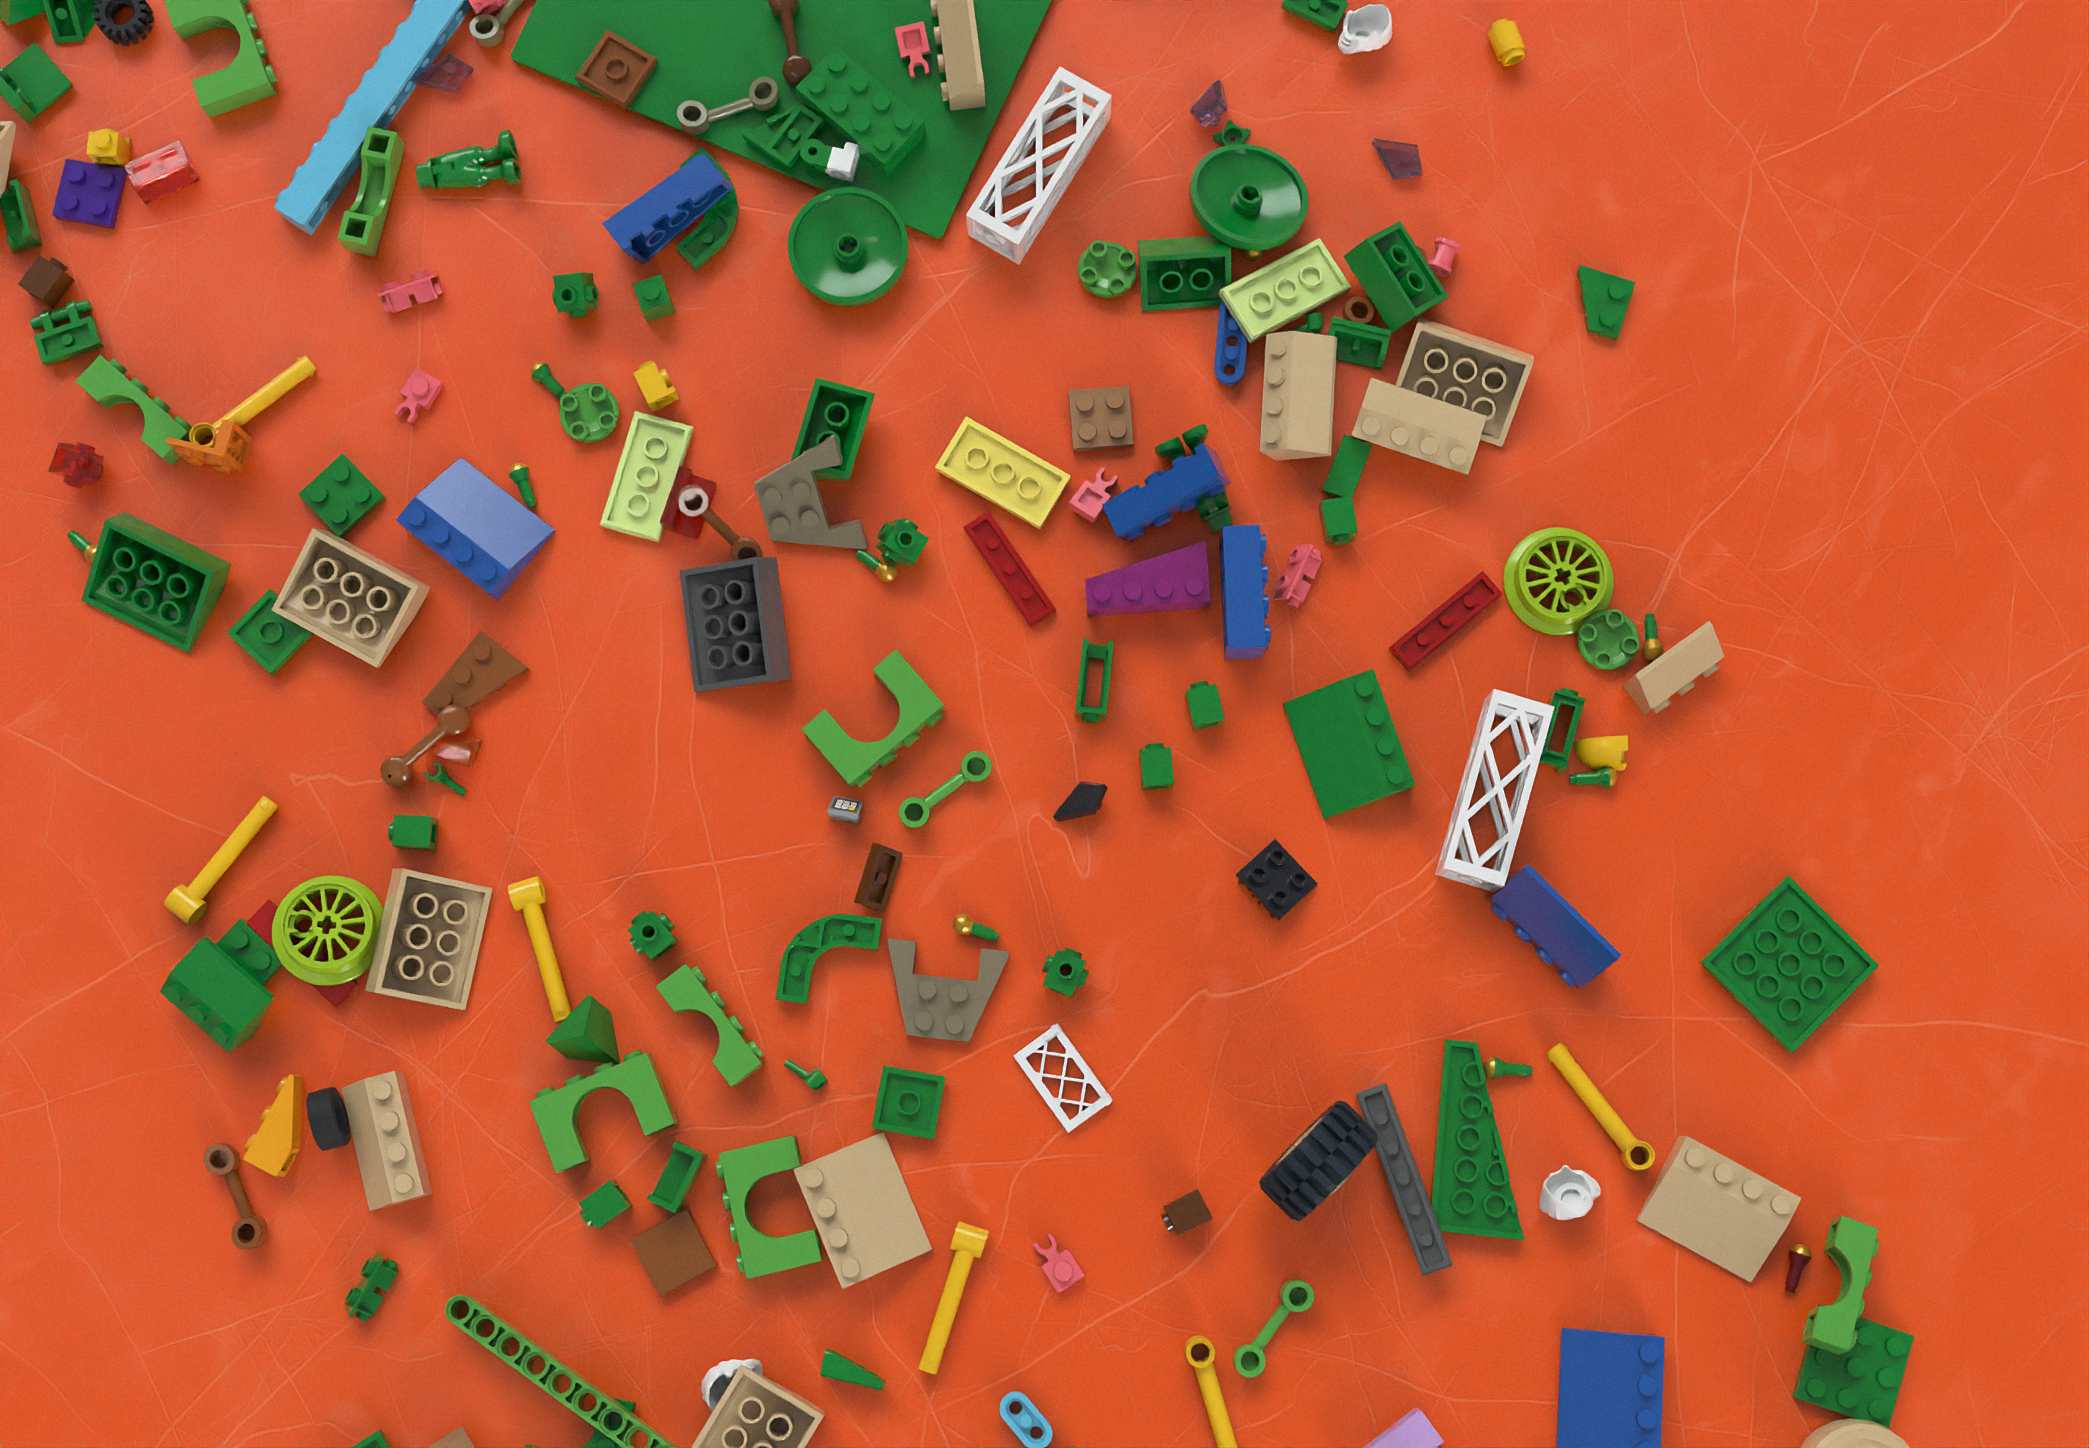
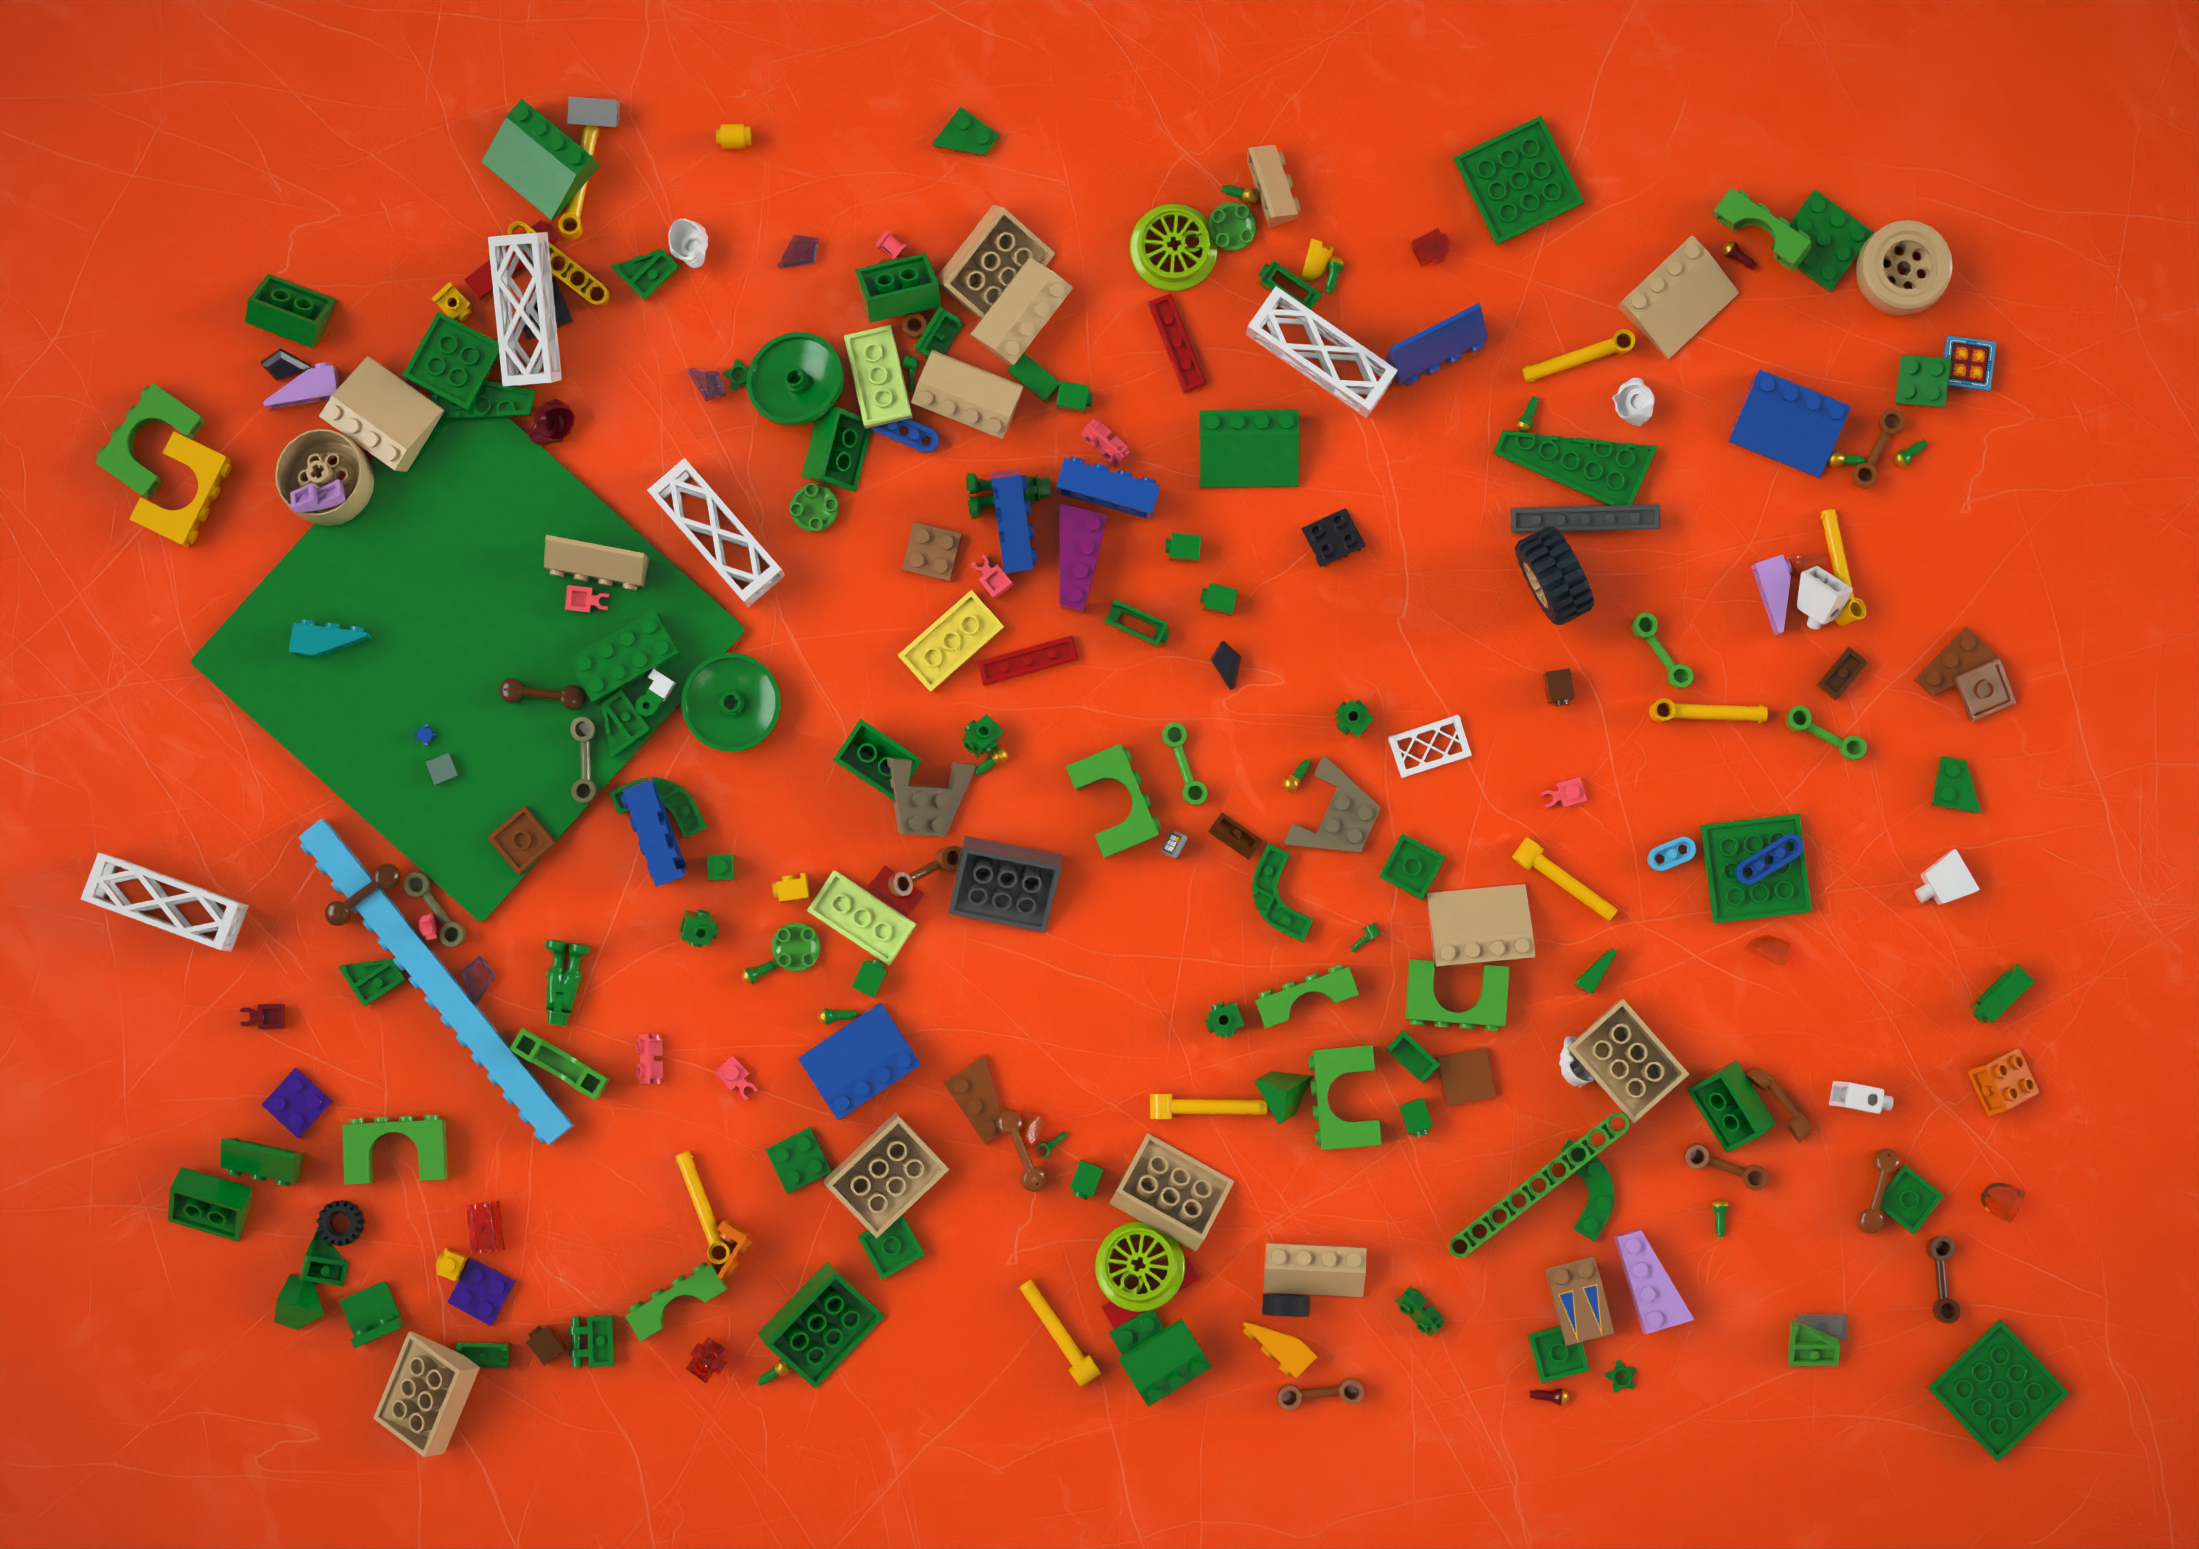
camera: 75 degrees left, 5 degrees up
(577, 506) = (870, 977): none -> green brick
(1668, 884) = (1431, 248): none -> clear red brick

